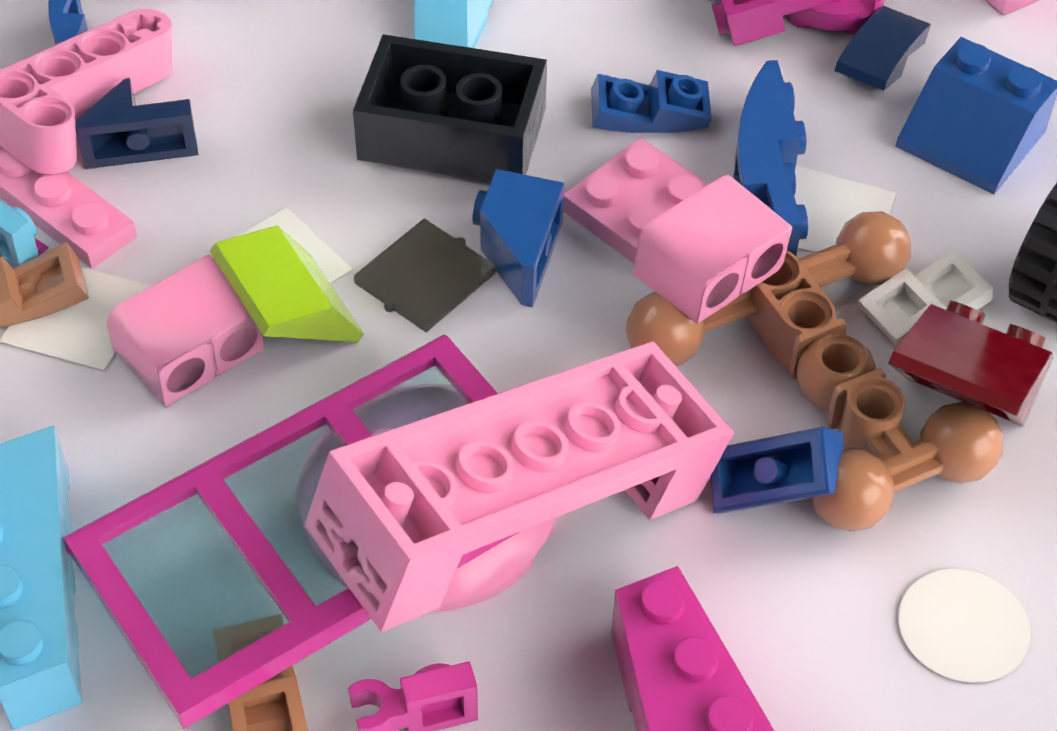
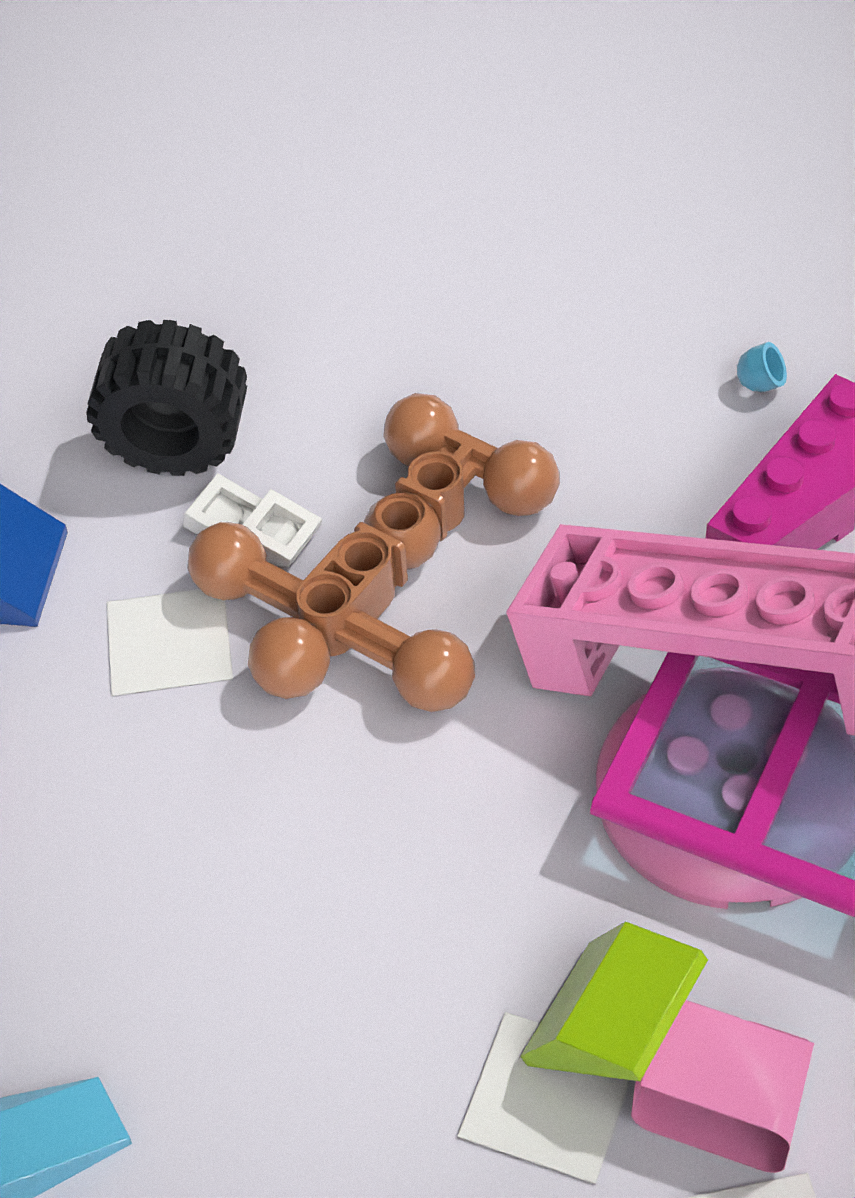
camera: 115 degrees left, 0 degrees up
(425, 275) = (470, 936): clear smoke piece -> none
(449, 108) = (244, 1000): black brick -> none
(519, 228) = (377, 853): blue slope -> none
(629, 194) = (252, 787): bright pink plate -> none
(664, 106) = (95, 846): blue slope -> none
(711, 248) = (361, 615): bright pink piece -> none
(770, 147) = (125, 706): blue slope -> none
(777, 470) = (529, 509): blue slope -> none
(964, 625) = (575, 401): white sticker -> none
(974, 362) = (365, 416): dark red slope -> none

